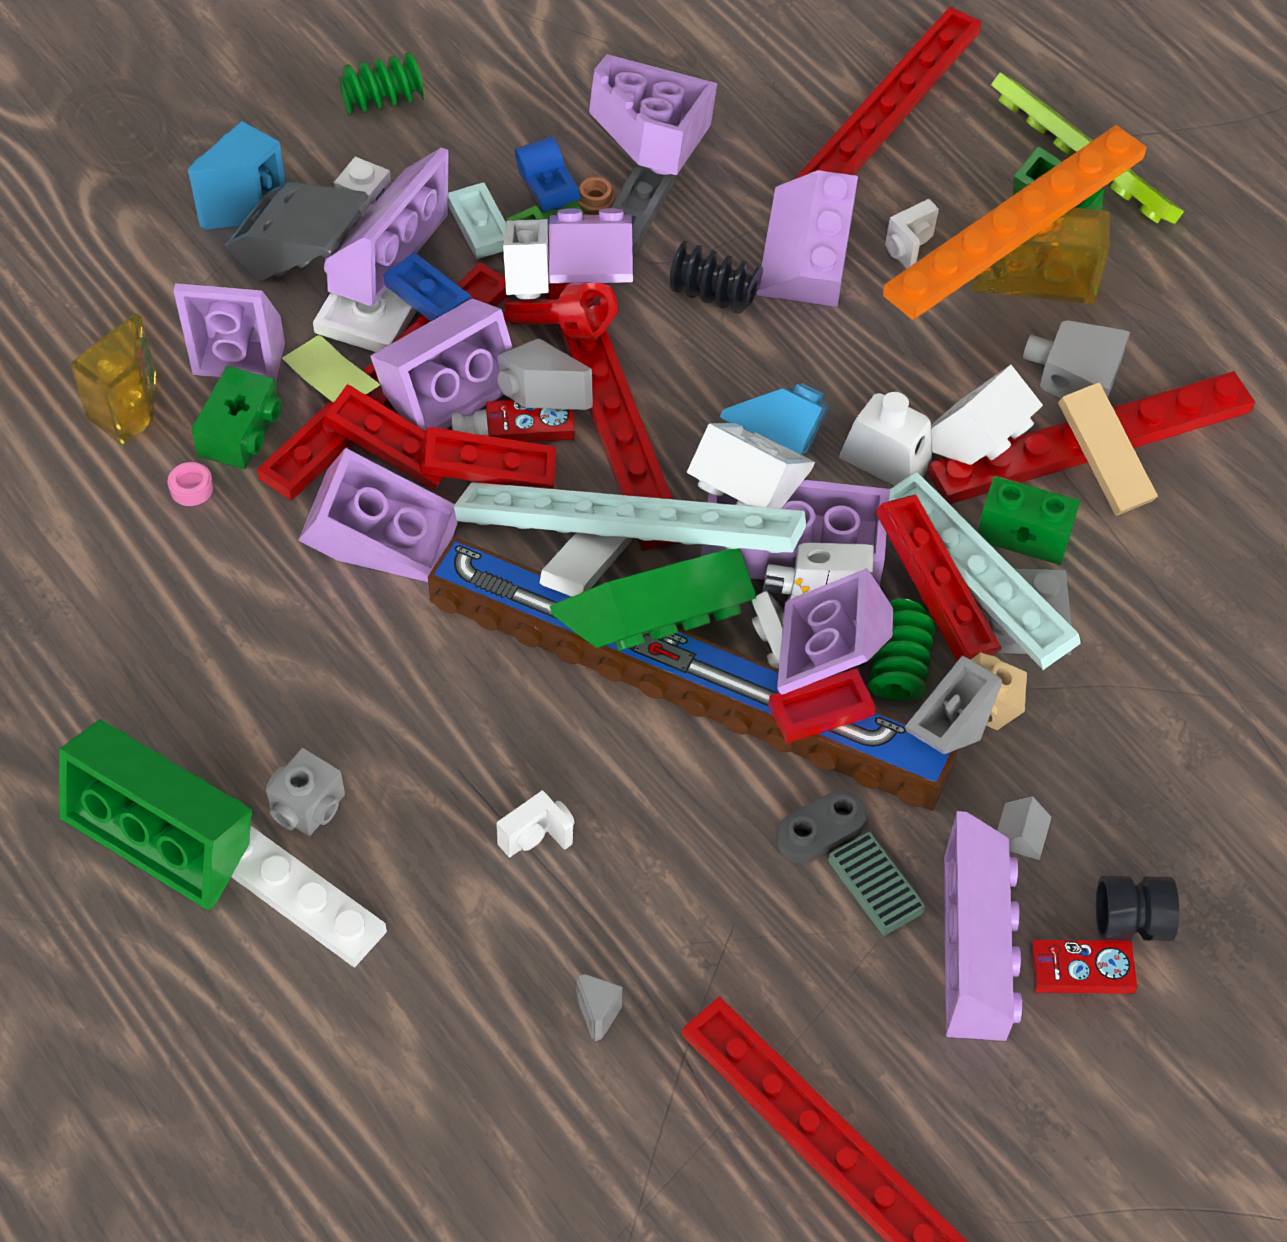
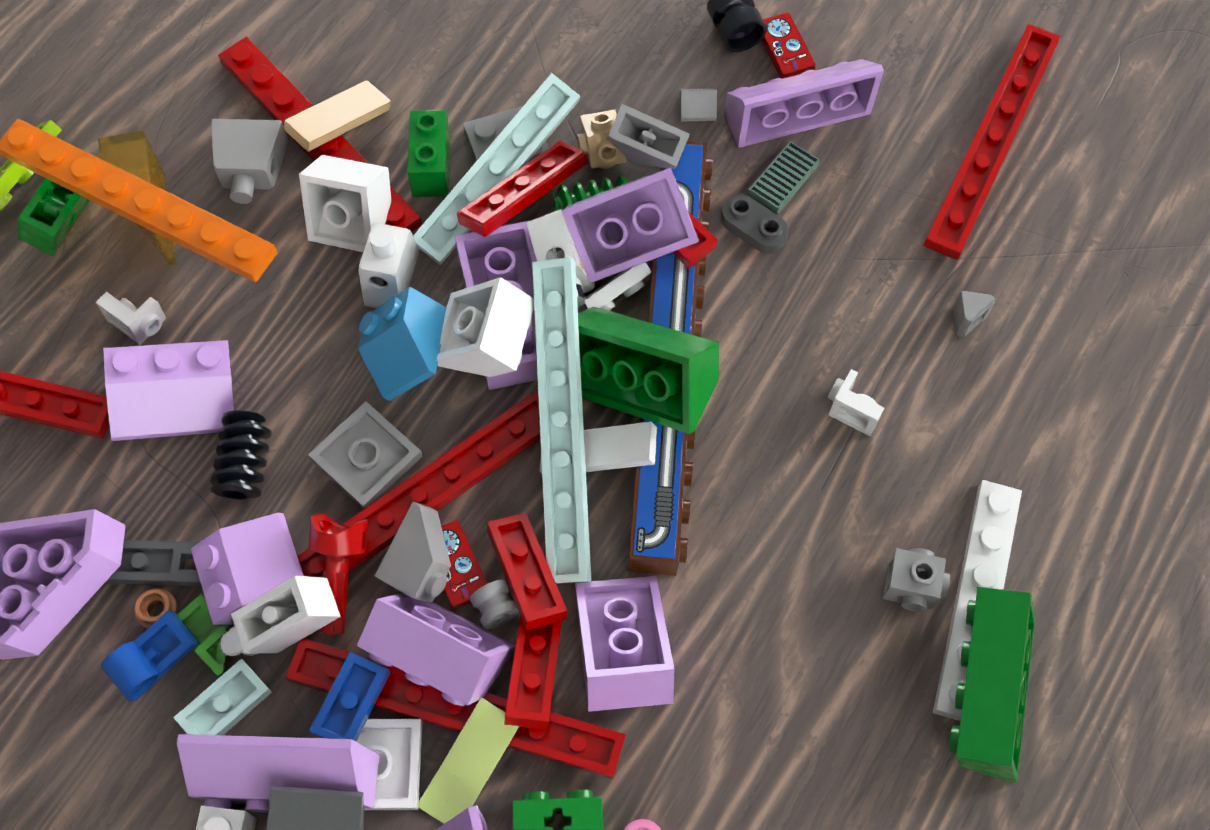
camera: 110 degrees left, 10 degrees up
(677, 377) = (365, 455): none -> light grey plate

